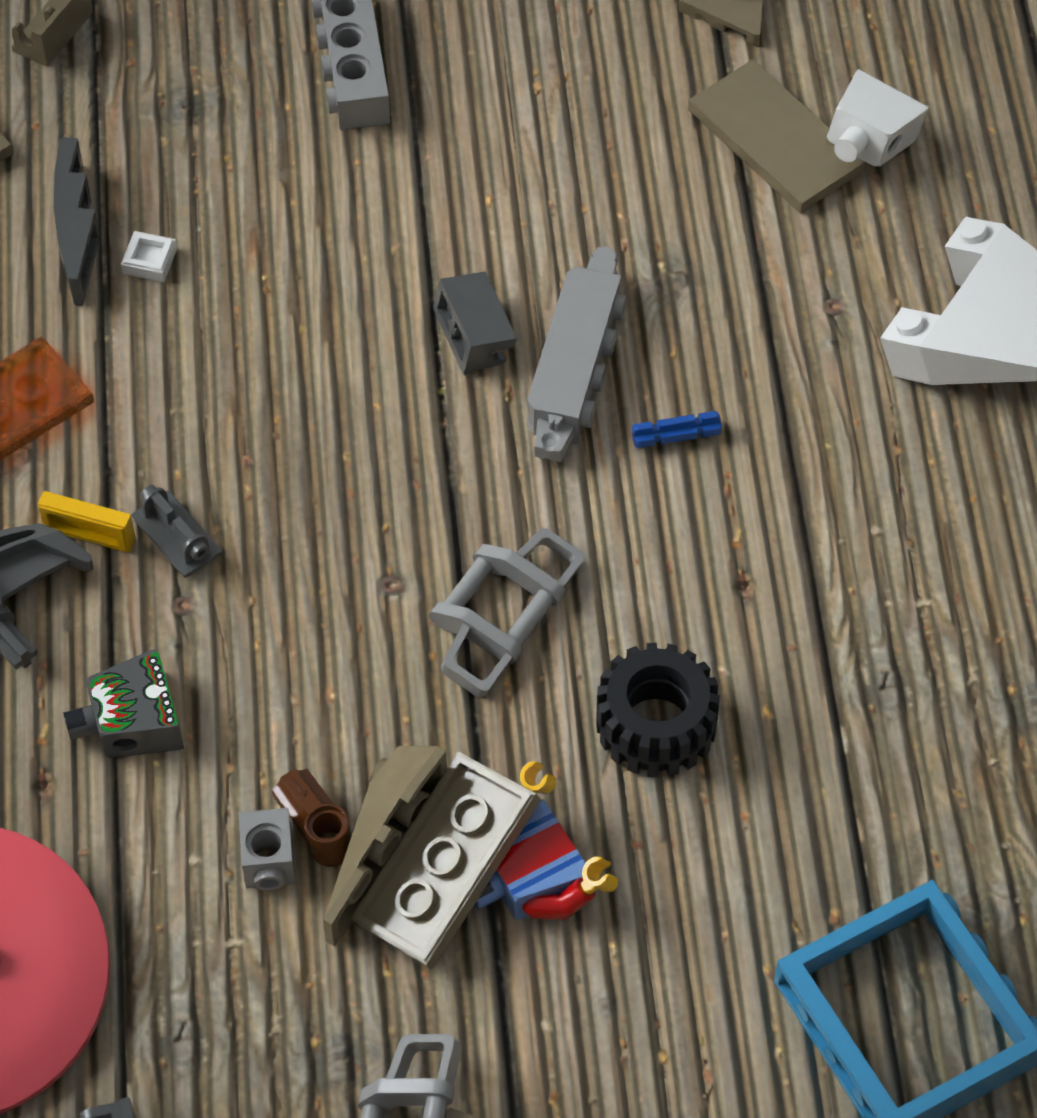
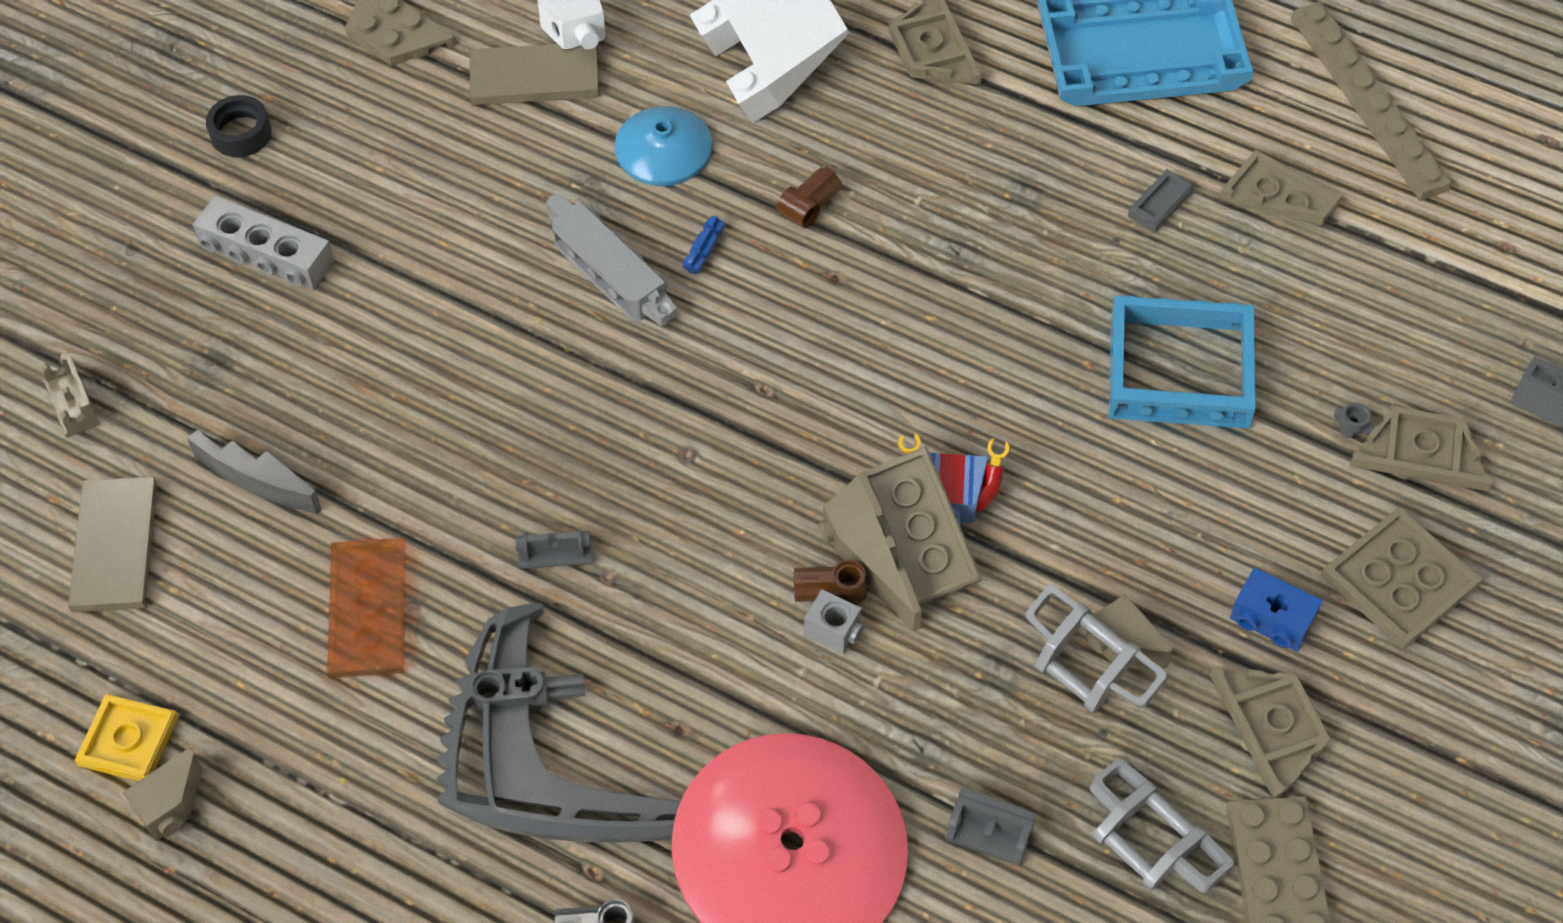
camera: 55 degrees left, 0 degrees up
(87, 521) = (506, 592): yellow tile -> none
(129, 709) = (671, 643): torso -> none
(149, 256) = (319, 448): white tile -> none
(456, 618) = (758, 425): light grey bar -> none
(473, 321) = (536, 300): dark grey hinge -> none
(663, 676) = (897, 341): black tyre -> none
(781, 327) = (663, 146): none -> dark azure dish
(811, 488) = (805, 202): none -> reddish brown piece

